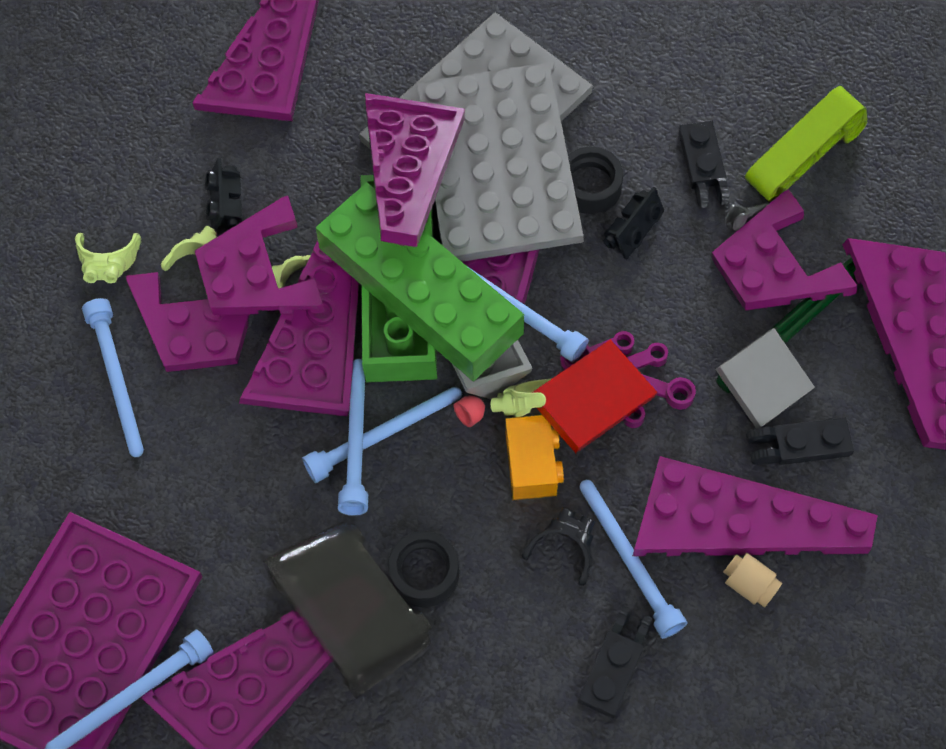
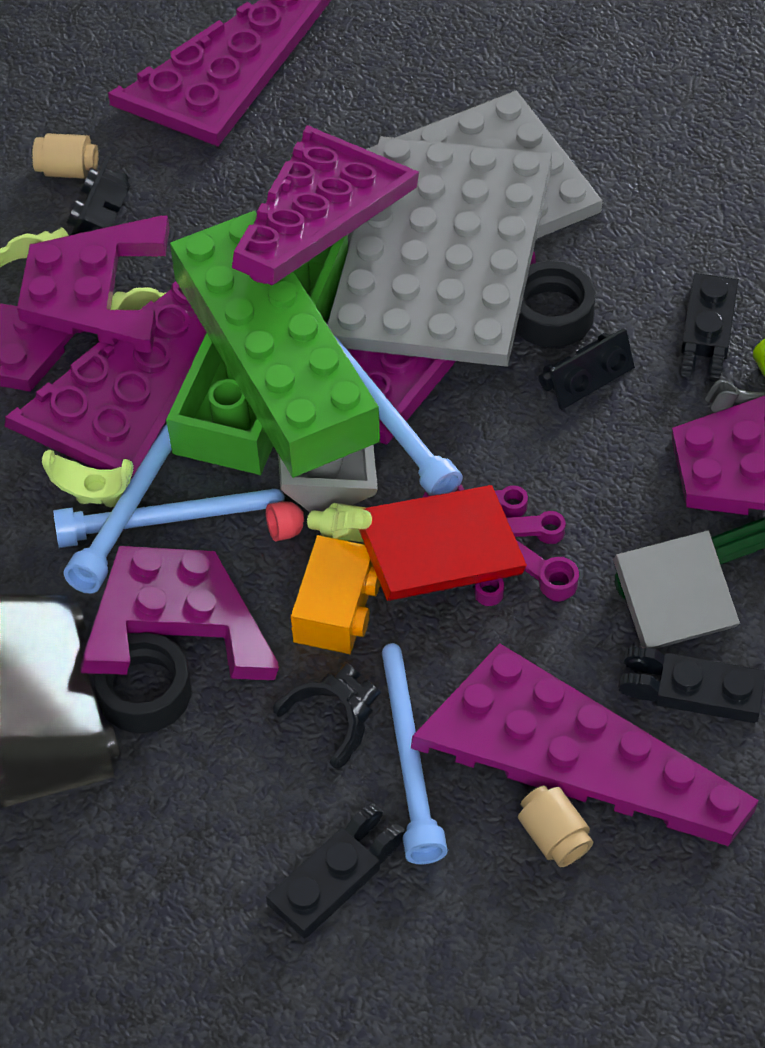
camera: 20 degrees right, 10 degrees down
(182, 164) = (64, 155): none -> tan brick
(323, 426) = (87, 483): none -> yellowish green helmet
(419, 495) = (174, 595): none -> magenta wing

